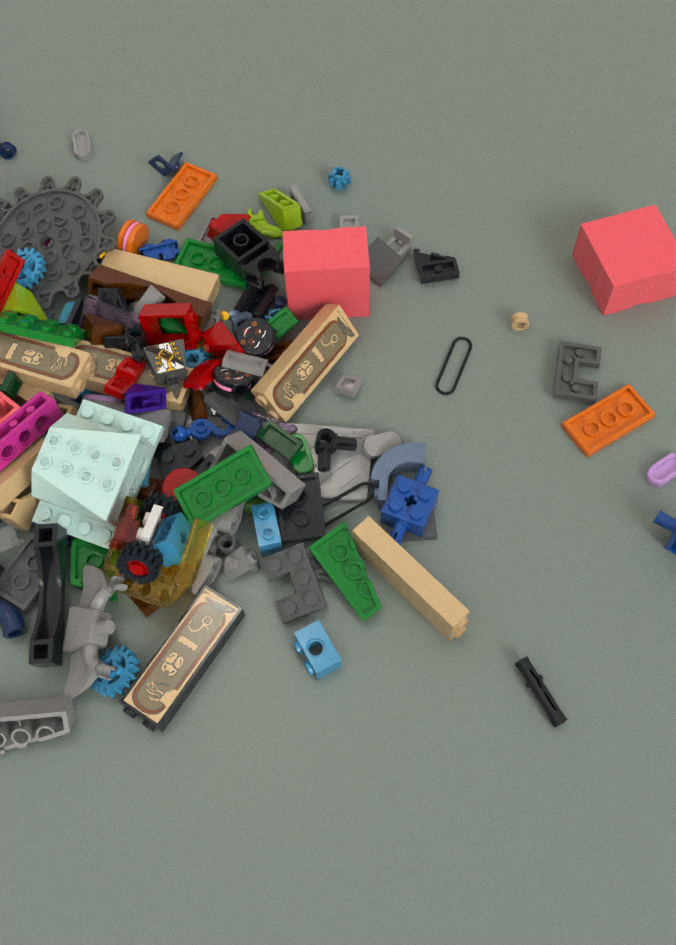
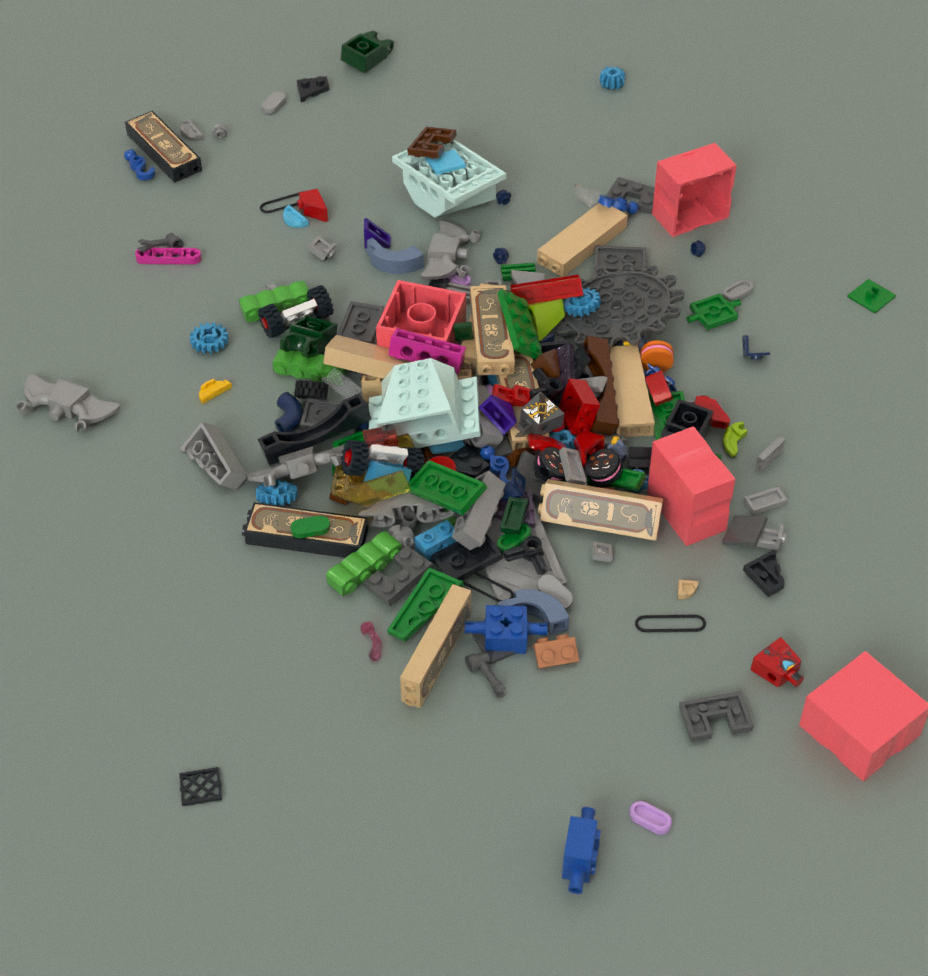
camera: 65 degrees right, 15 degrees down
(98, 171) = (713, 311): none -> green plate
(151, 54) = (871, 296): none -> green piece
(176, 252) = (658, 388): none -> red slope
(181, 196) = (728, 374): orange tile -> none
(191, 650) = (310, 526): none -> green tile
(260, 613) = (363, 563): none -> bright green brick
(282, 209) = (755, 442): lime slope -> none
(316, 636) = (350, 610): dark azure brick -> none
(339, 178) = (819, 471): dark azure gear -> none
(379, 644) = (375, 652): none -> clear pink piece
(421, 336) = (686, 588): none -> tan tile
(435, 548) = (481, 662): none -> dark grey brick
(451, 472) = (556, 651): none -> nougat bracket
(488, 875) = (203, 799): none -> black window
(519, 321) = (744, 655): tan bush -> none
(540, 300) = (778, 664): none -> red torso
(544, 697) = (389, 767): black pin -> none
(608, 420) = (679, 758): orange tile -> none

